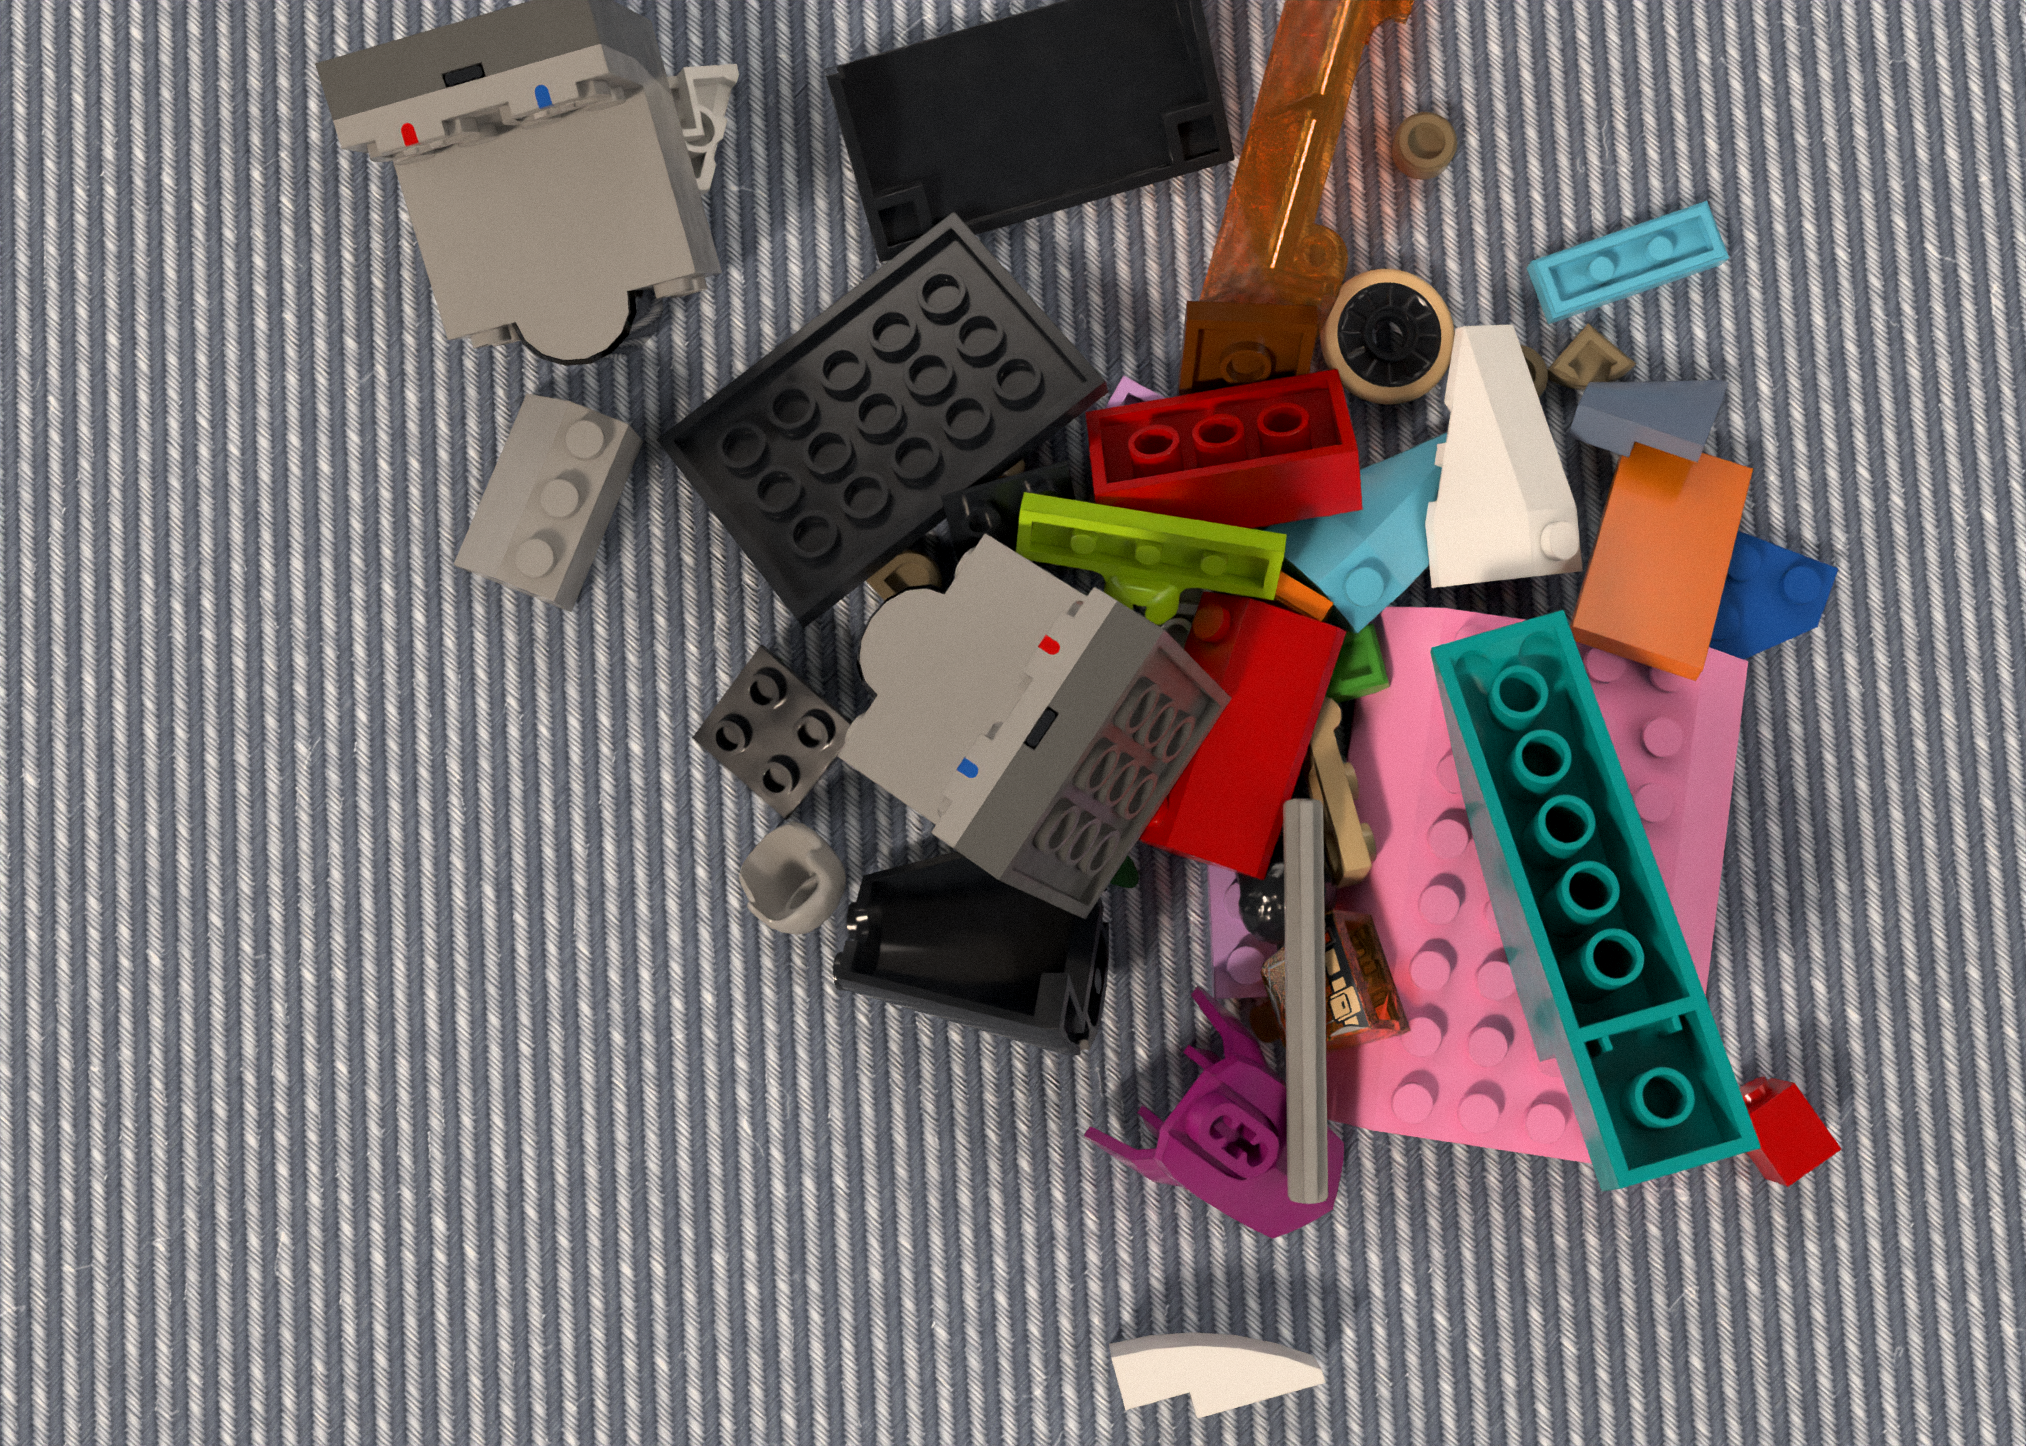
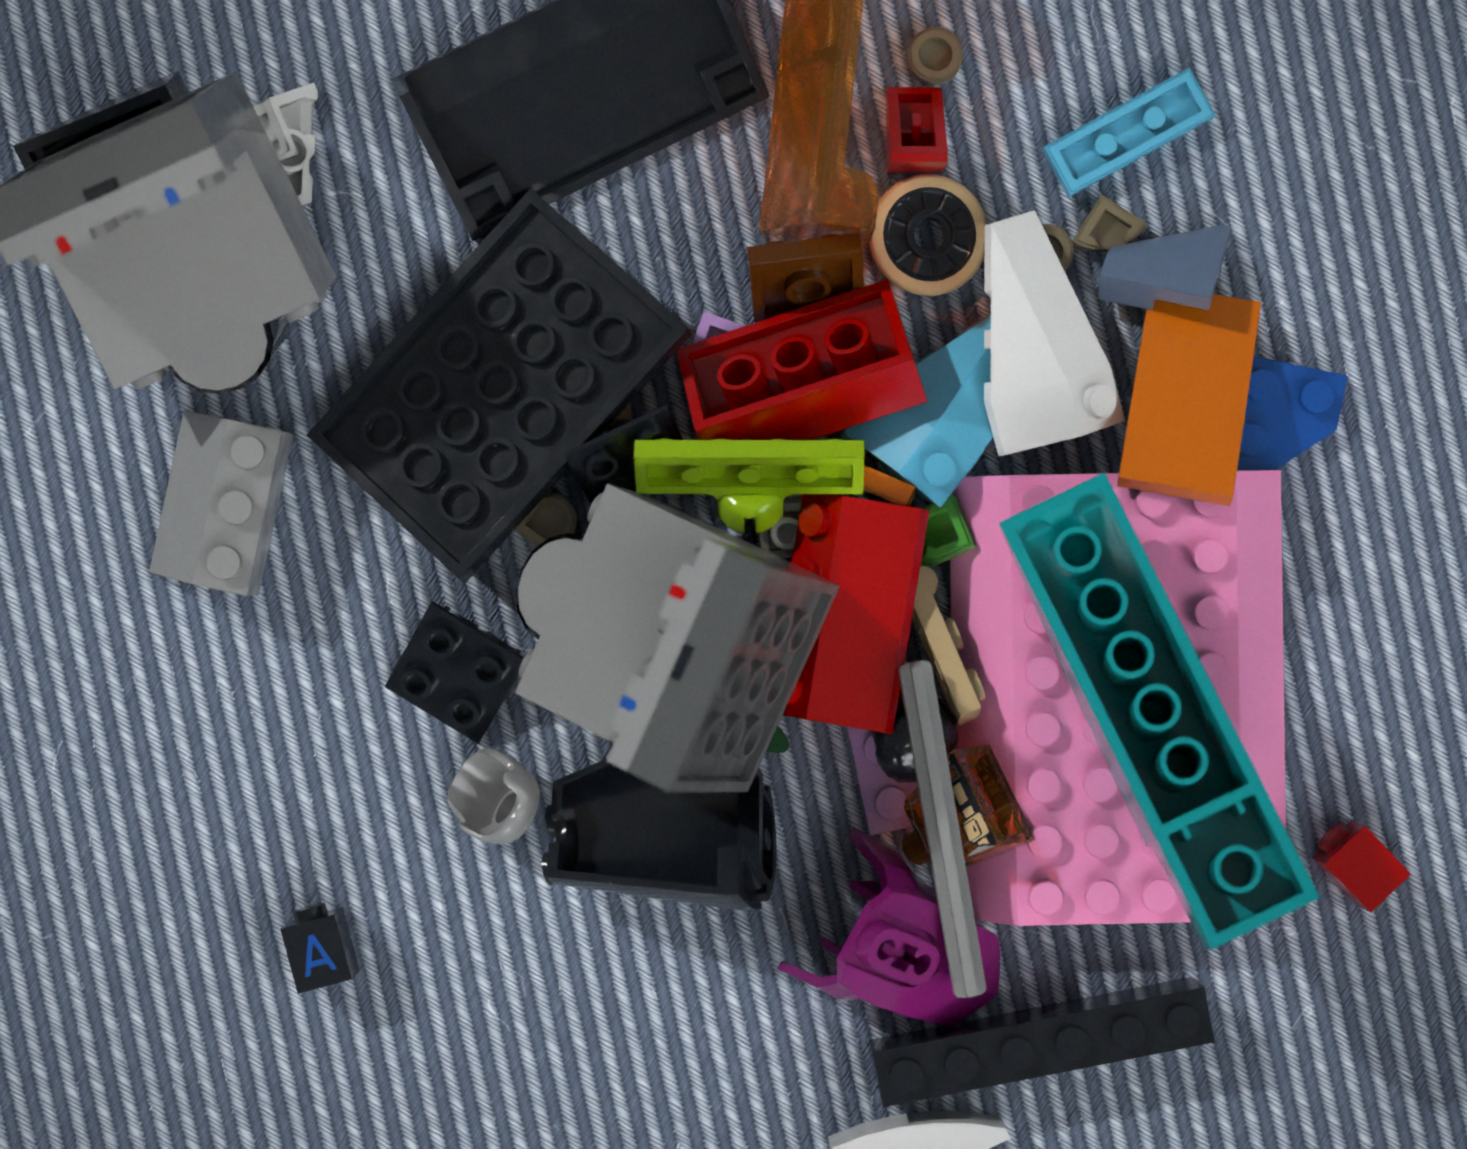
camera: 15 degrees left, 5 degrees up
(562, 1020) = (319, 947): none -> black brick
(1378, 1273) = (1041, 1041): none -> black brick
(1390, 223) = (915, 131): none -> red slope

